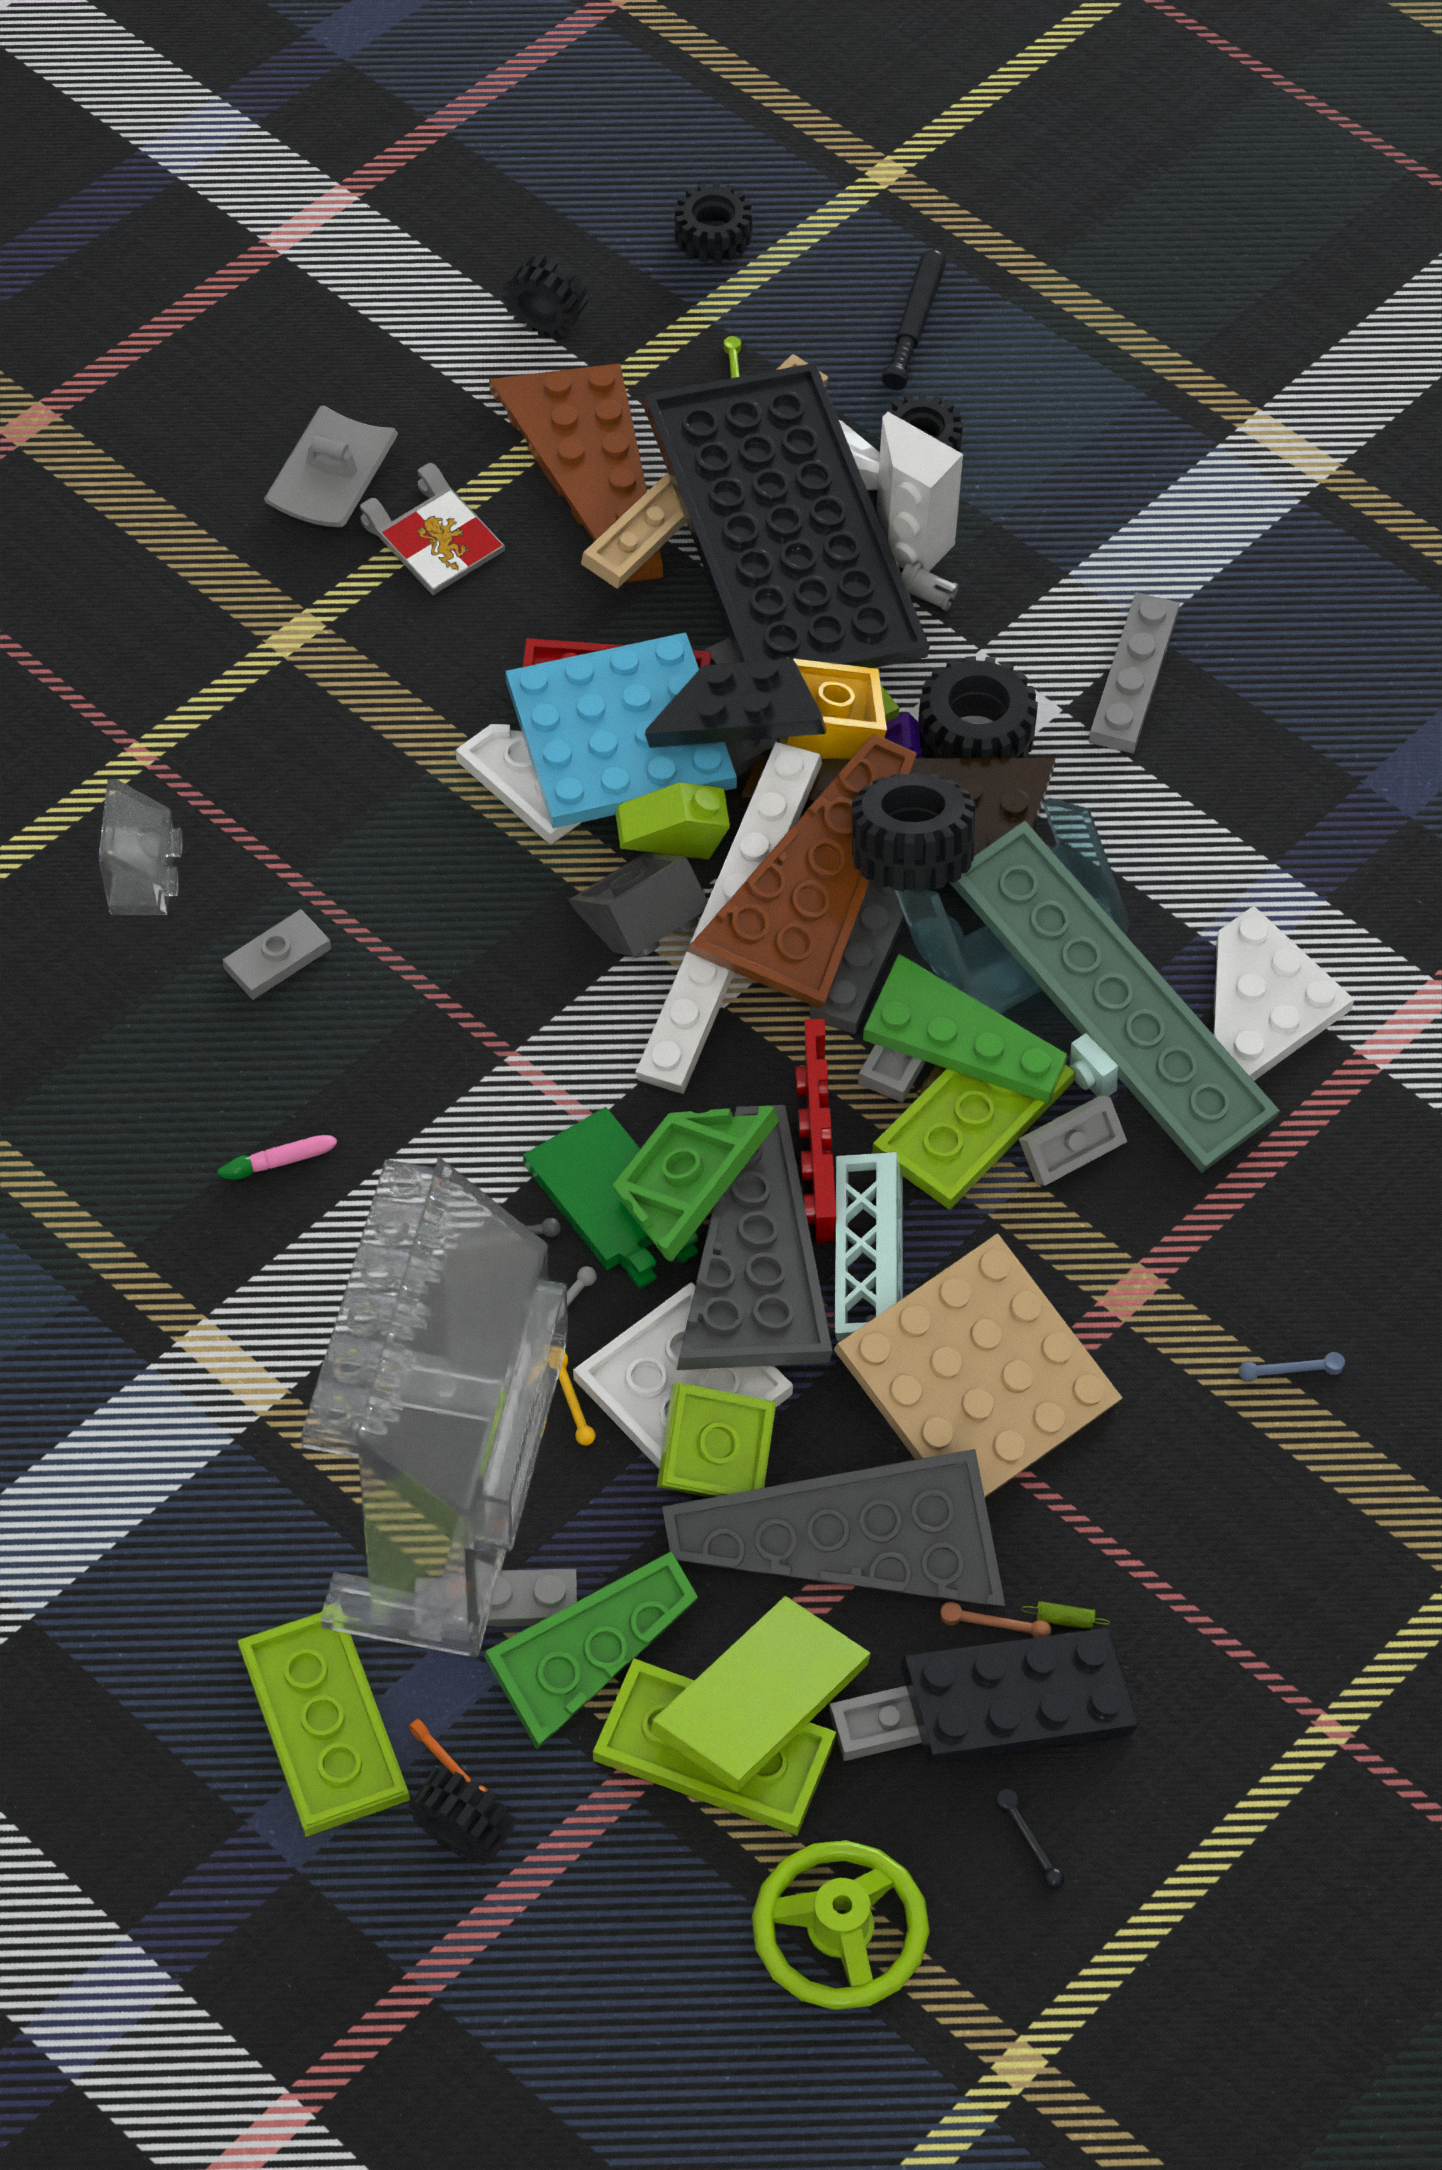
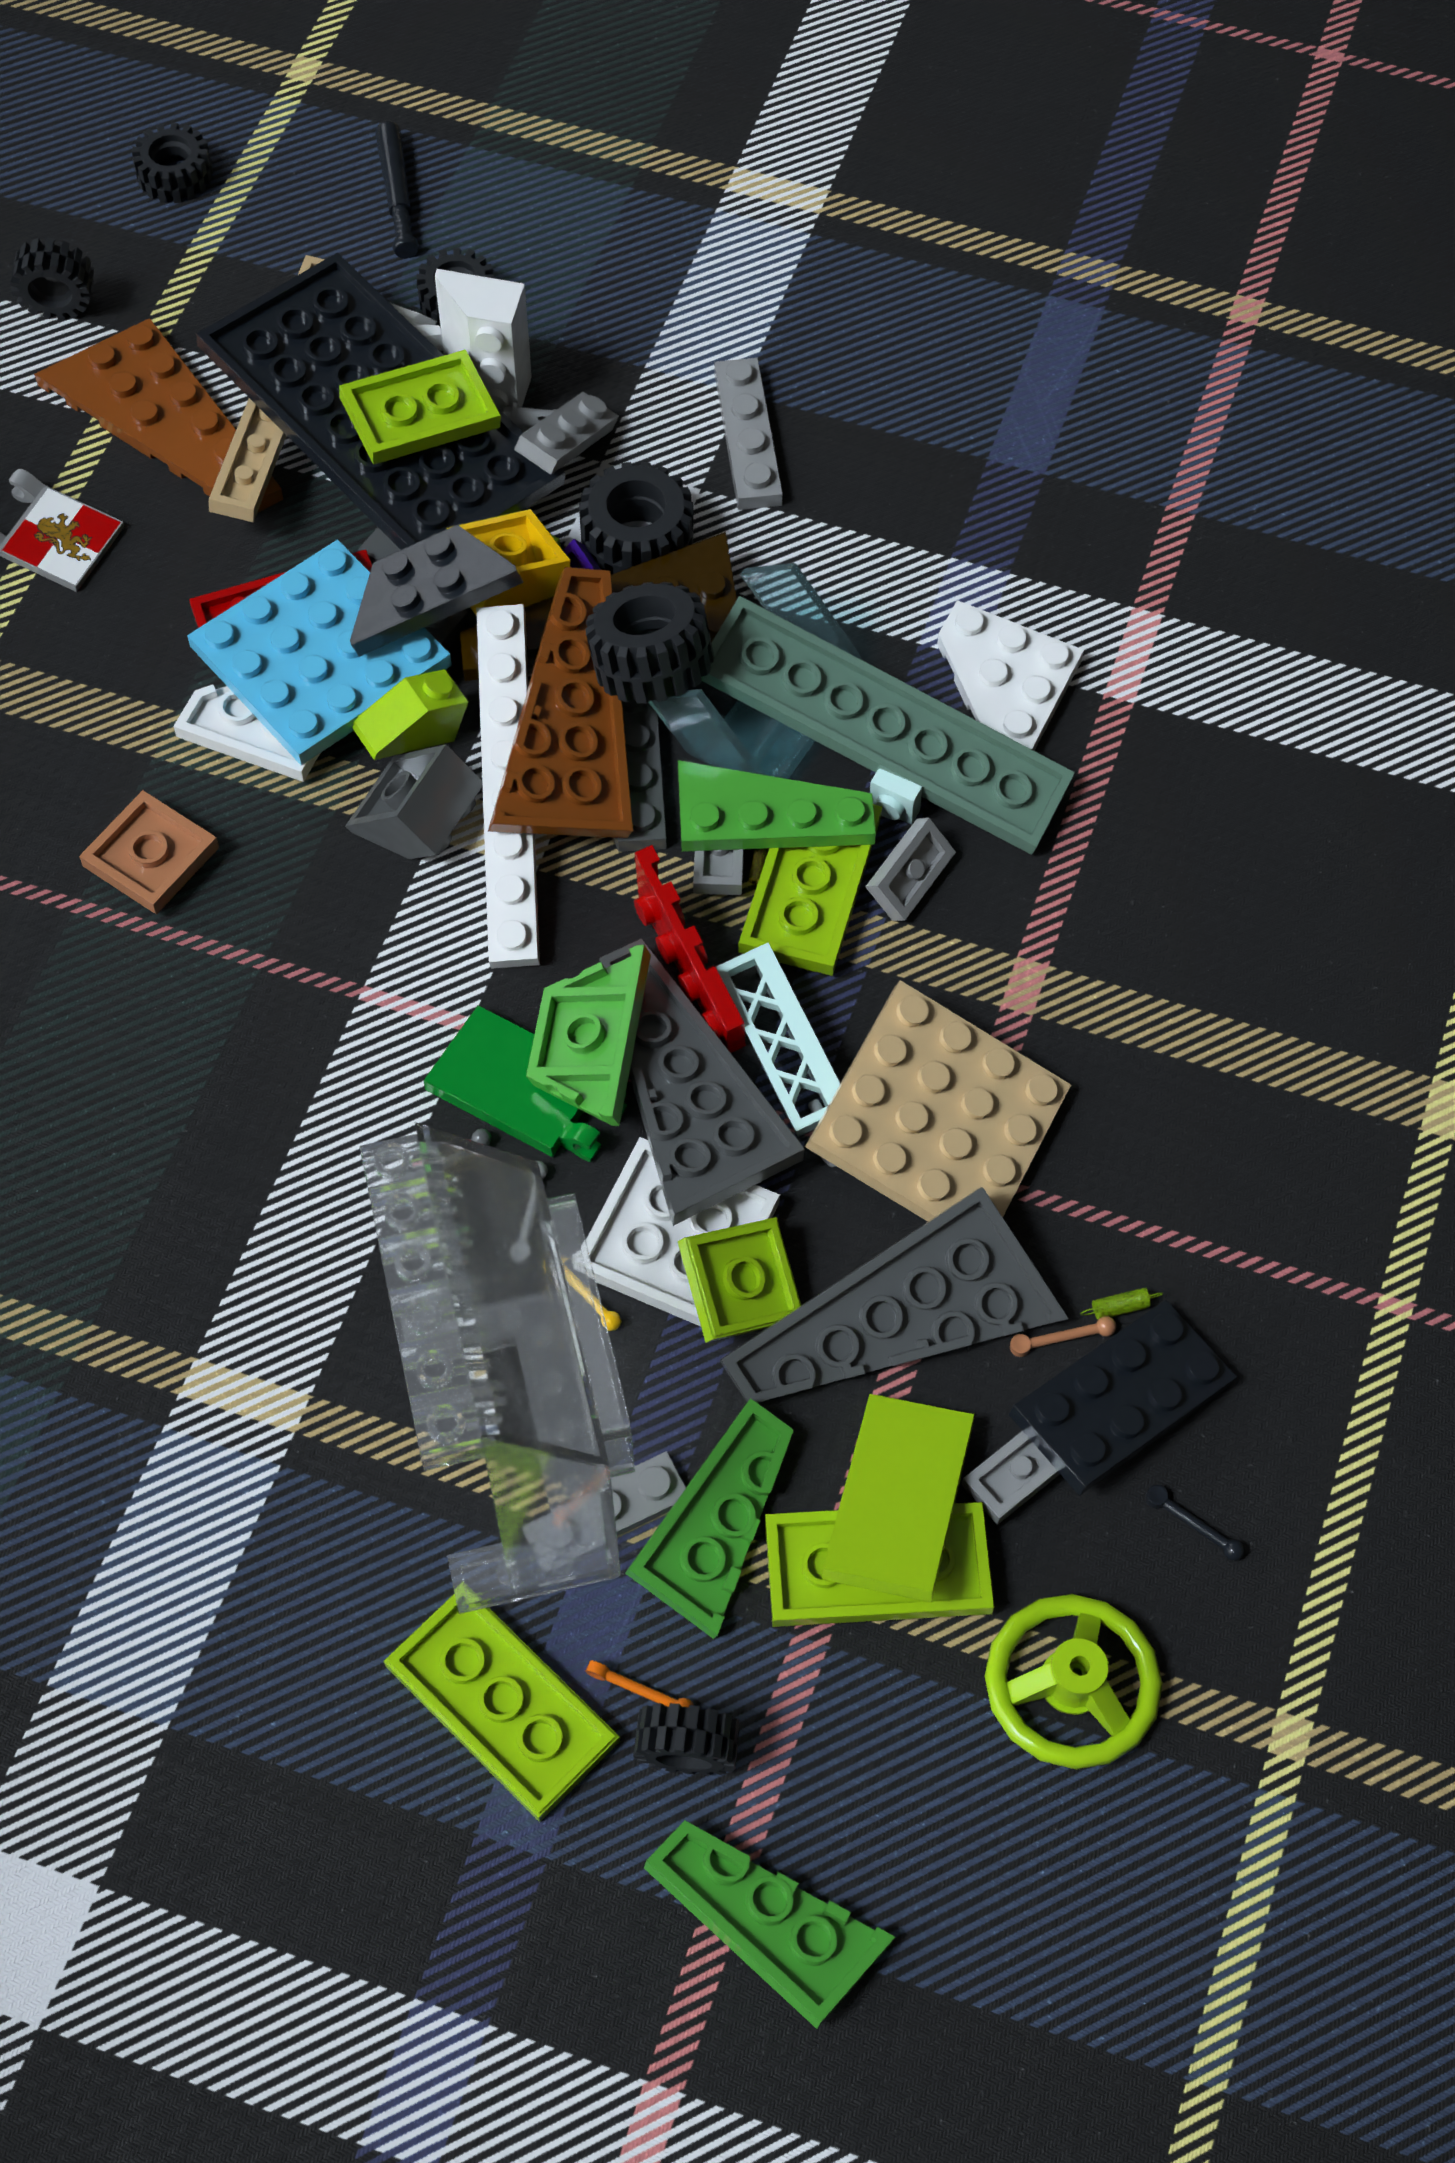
camera: 25 degrees left, 5 degrees up
(244, 1165) = (163, 1197): bright pink piece -> none
(276, 954) = (94, 983): light grey plate -> none
(380, 855) = (149, 852): none -> nougat plate
(466, 2020) = (787, 1936): none -> bright green wing
(732, 346) = (244, 269): lime hinge -> none
(817, 535) = (419, 406): none -> lime plate
(952, 609) = (566, 432): none -> light grey plate
(1331, 1364) = (1228, 979): sand blue hinge -> none

